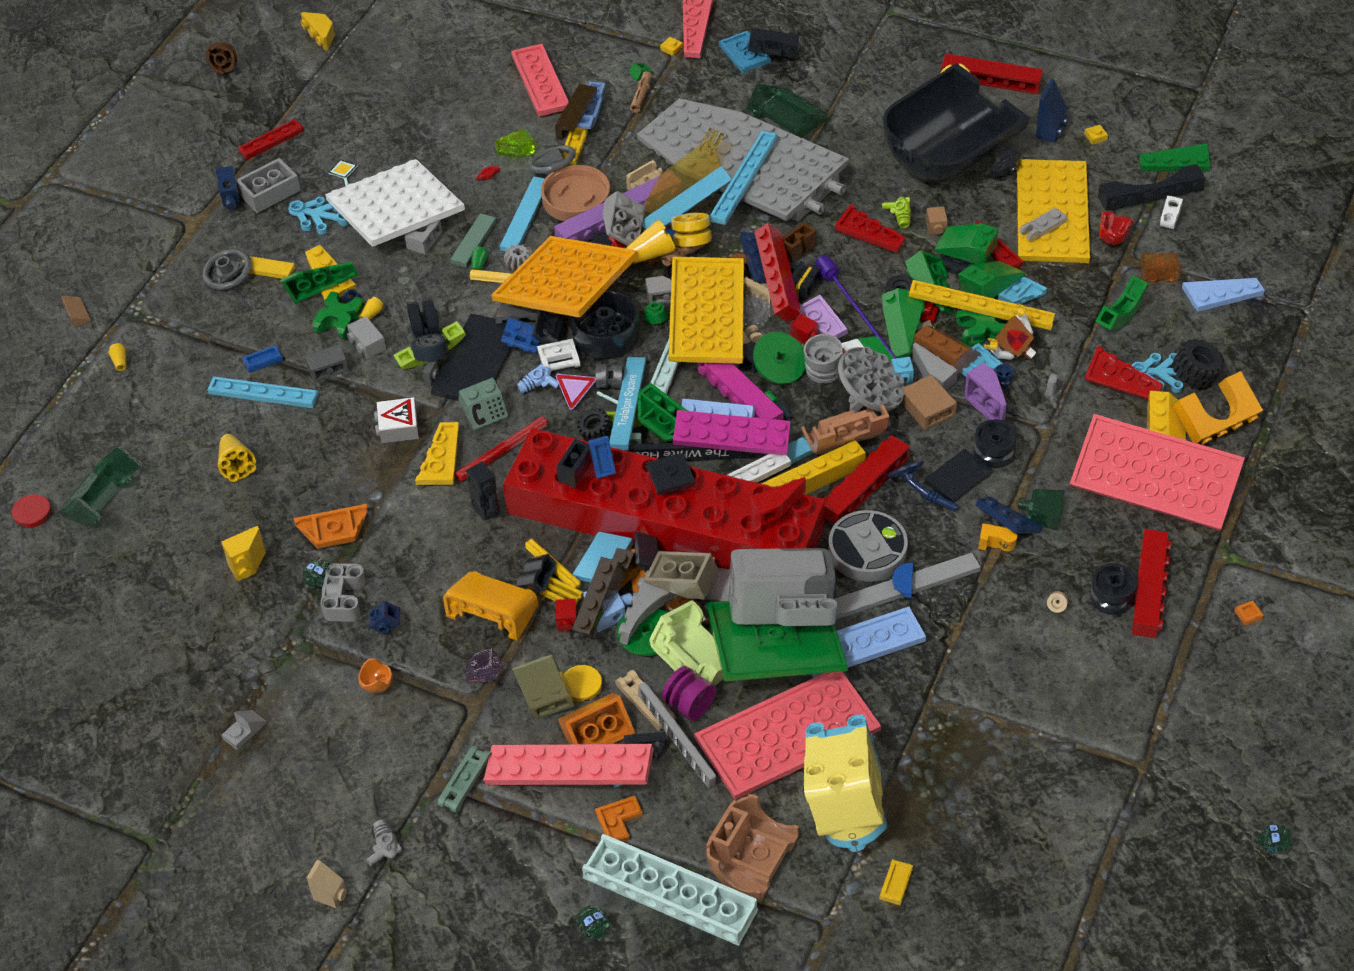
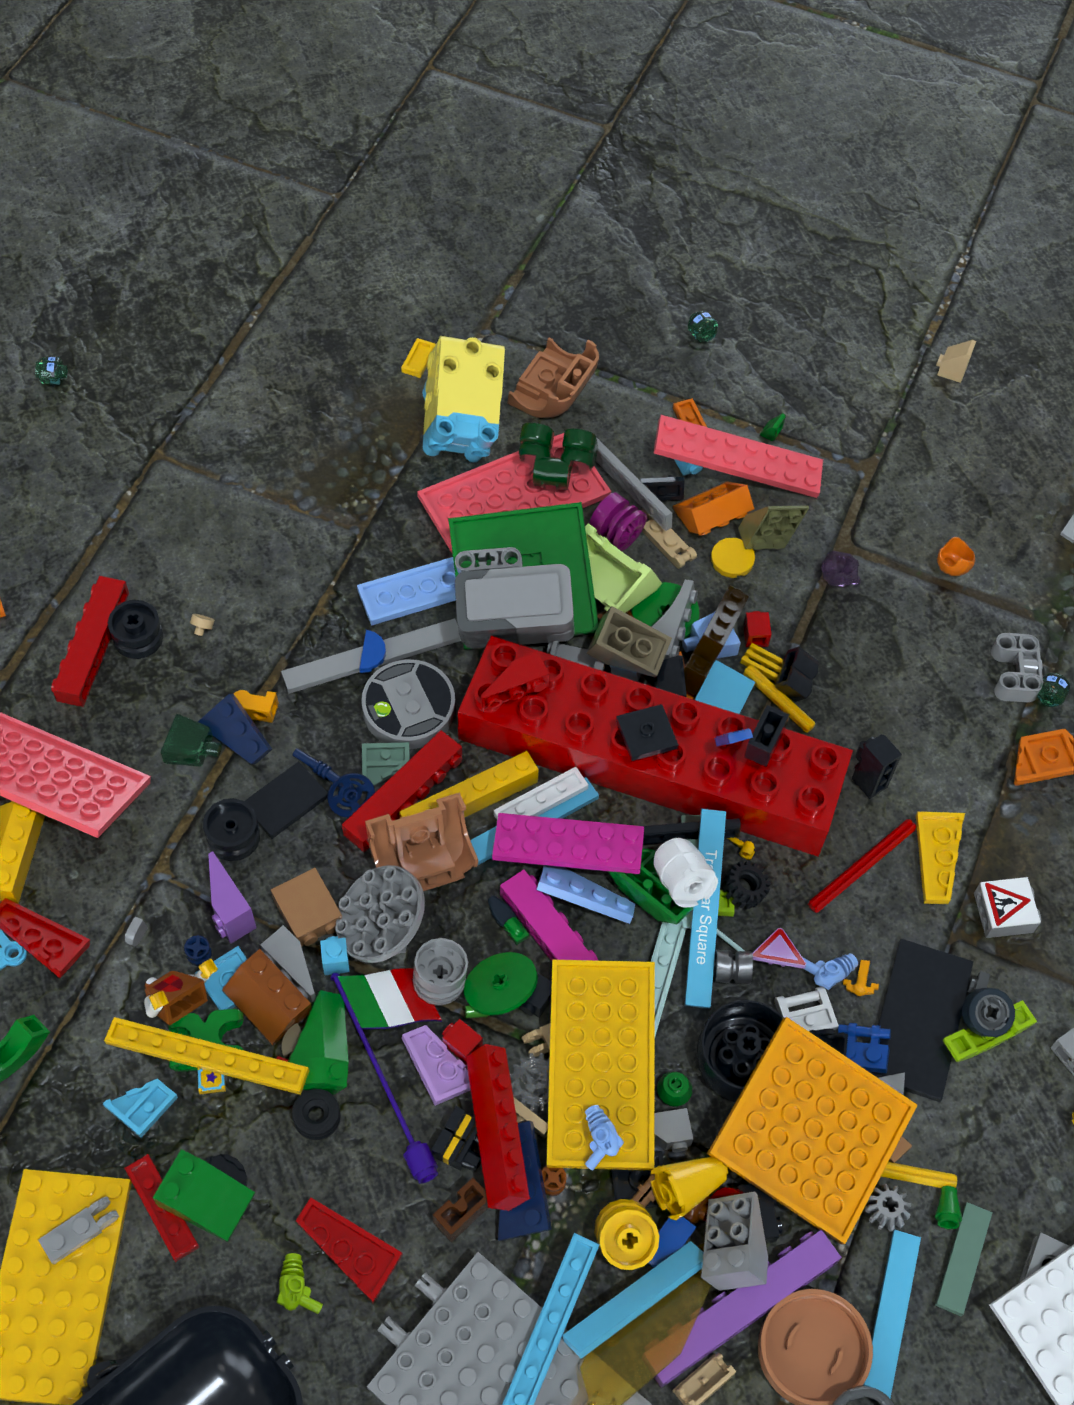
camera: 175 degrees right, 10 degrees up
(384, 617) = (961, 627): dark blue brick -> none
(385, 841) = (909, 404): light grey piece -> none
(426, 319) = (1008, 1067): black wheel -> none
(464, 779) = (841, 463): sand green plate -> none
(483, 404) = (900, 925): sand green slope -> none
(491, 600) = (848, 636): light orange windscreen -> none
(517, 372) = (860, 987): none -> light orange piece
(529, 813) = (773, 427): none -> green slope
(644, 401) = (684, 872): none -> white piece
(671, 889) = (634, 357): light aqua tile -> none
(706, 264) = (604, 1135): none -> light blue piece
(748, 731) = (538, 441): none -> dark green piece
(885, 502) = (383, 760): none -> sand green wing
(931, 270) = (271, 1134): green wedge -> none
(936, 220) = (241, 1257): medium nougat brick -> none
(989, 278) = (179, 1122): green slope -> none

